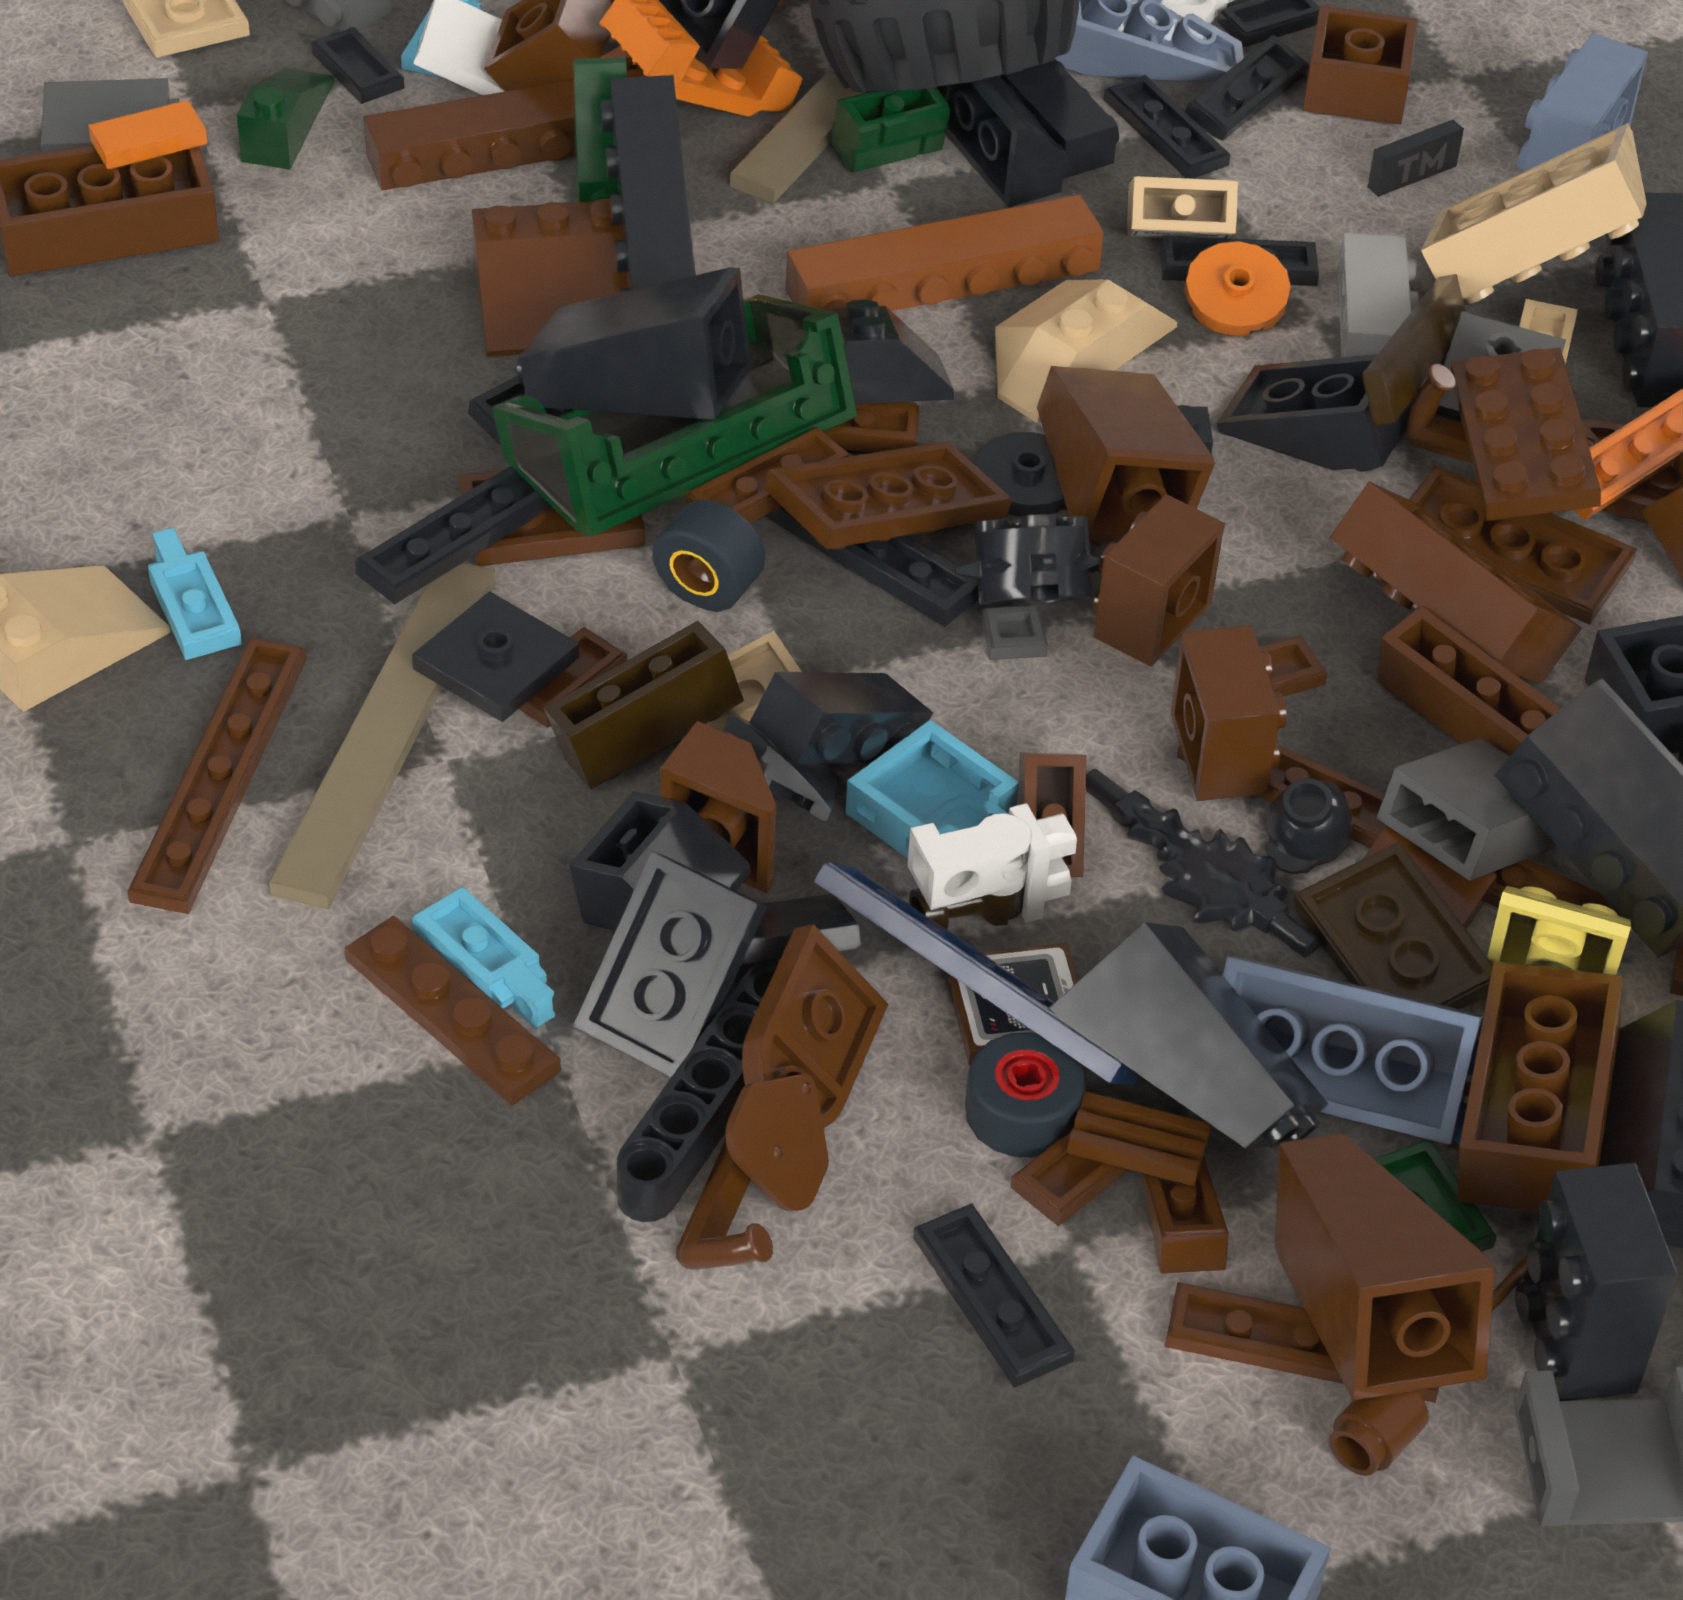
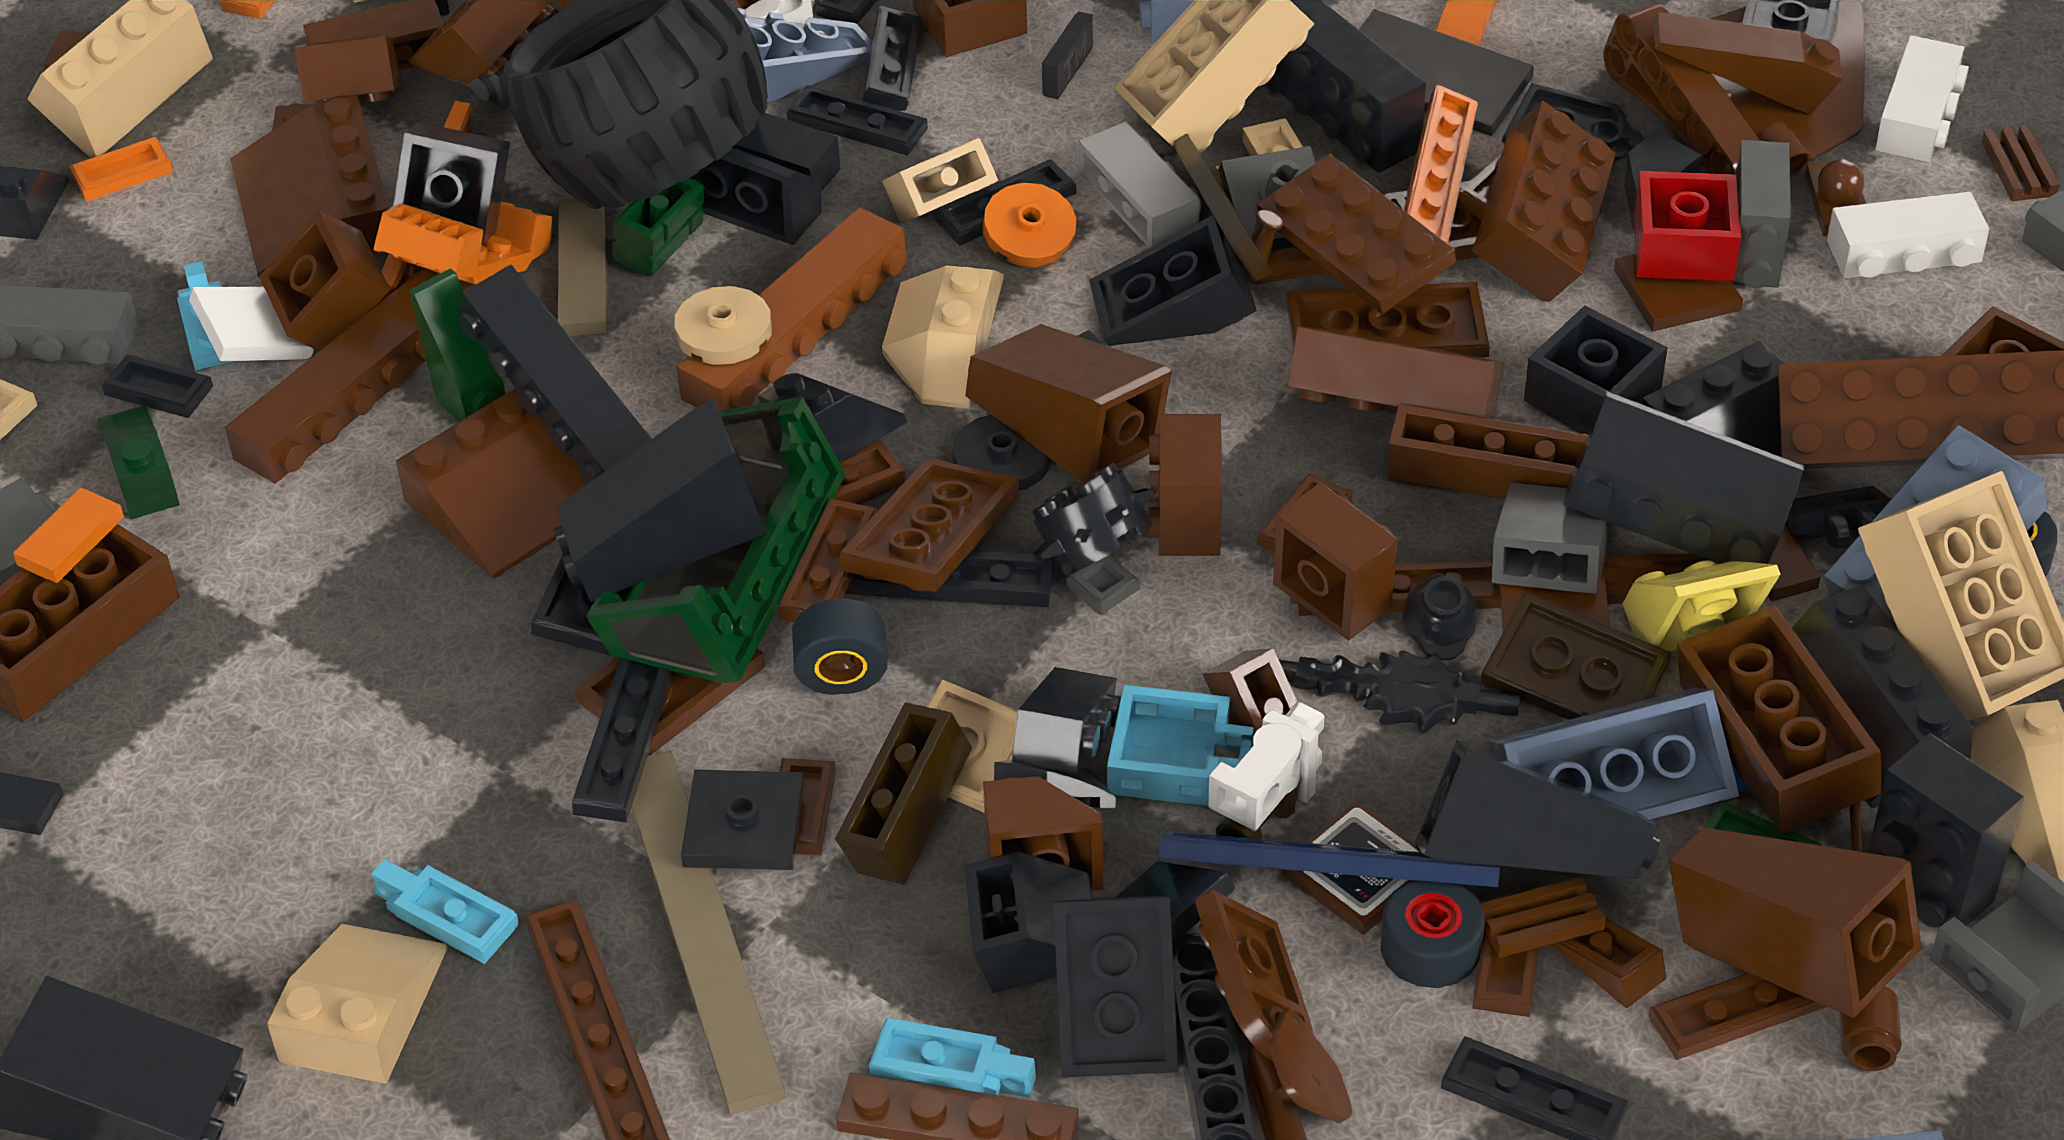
camera: 30 degrees left, 0 degrees up
(855, 233) = (723, 325): none -> tan plate

